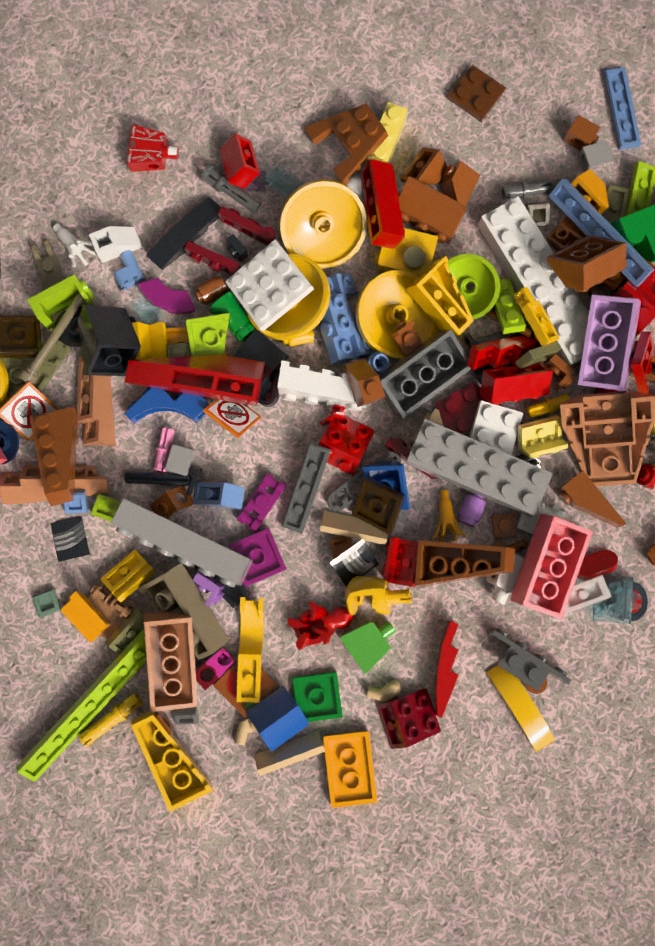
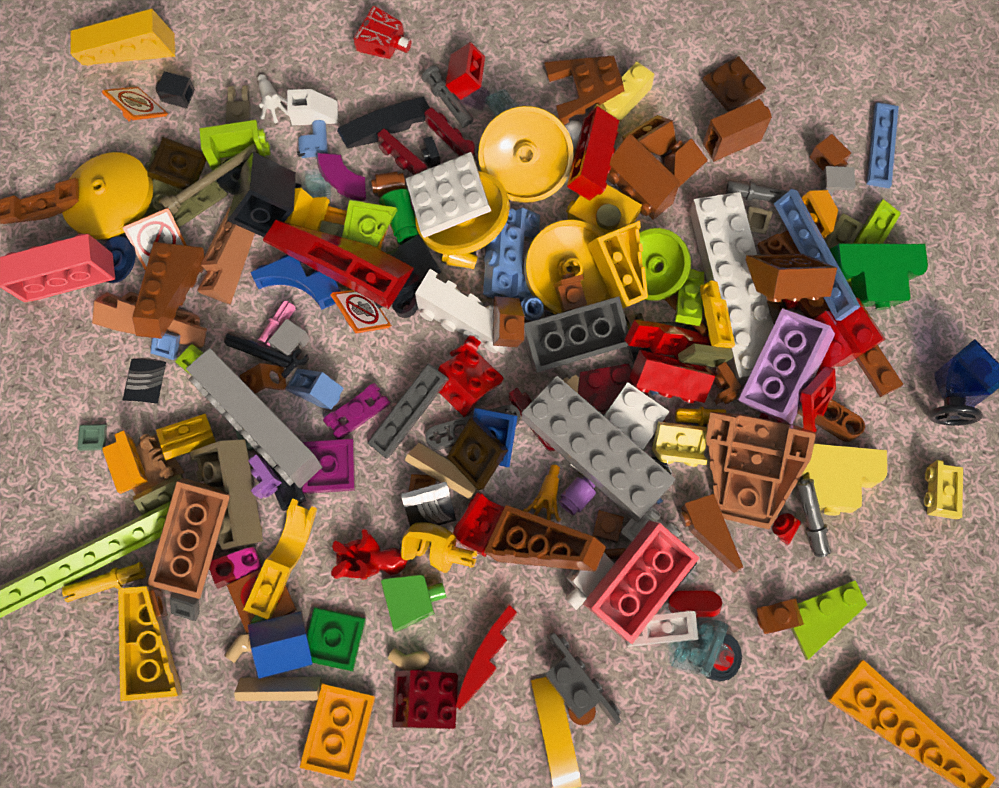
camera: 20 degrees right, 10 degrees down
(496, 138) = (736, 129): none -> dark orange brick

